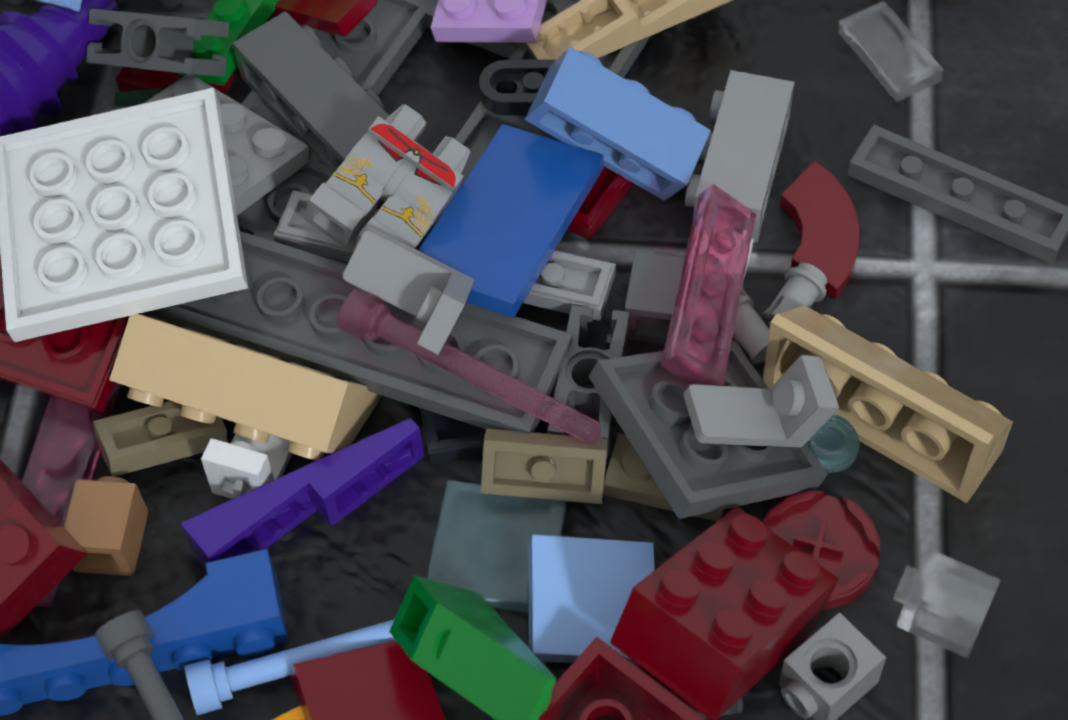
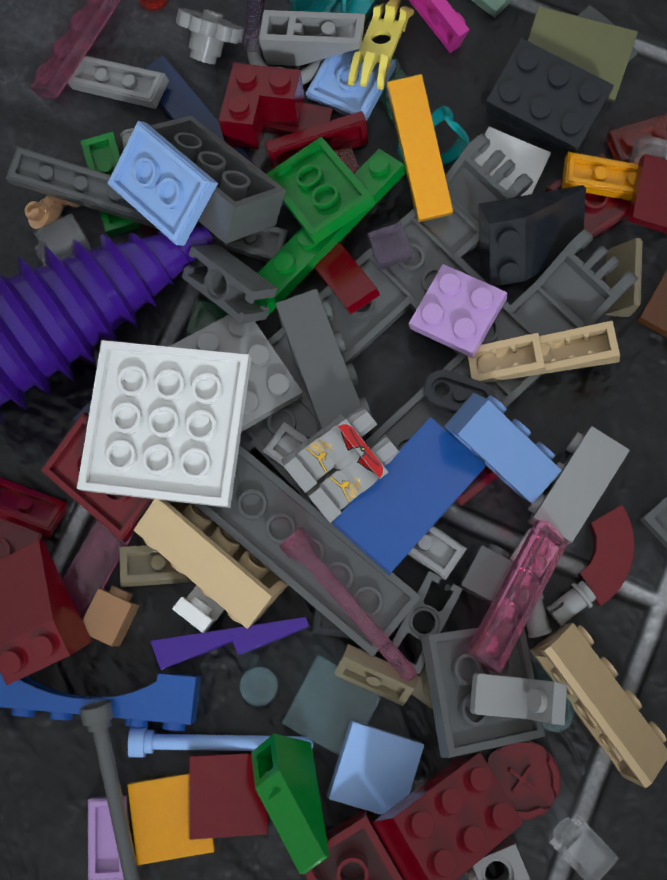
camera: 20 degrees right, 20 degrees up
(371, 552) = (258, 686): none -> clear light blue plate
(411, 283) = (345, 550): light grey bracket -> none

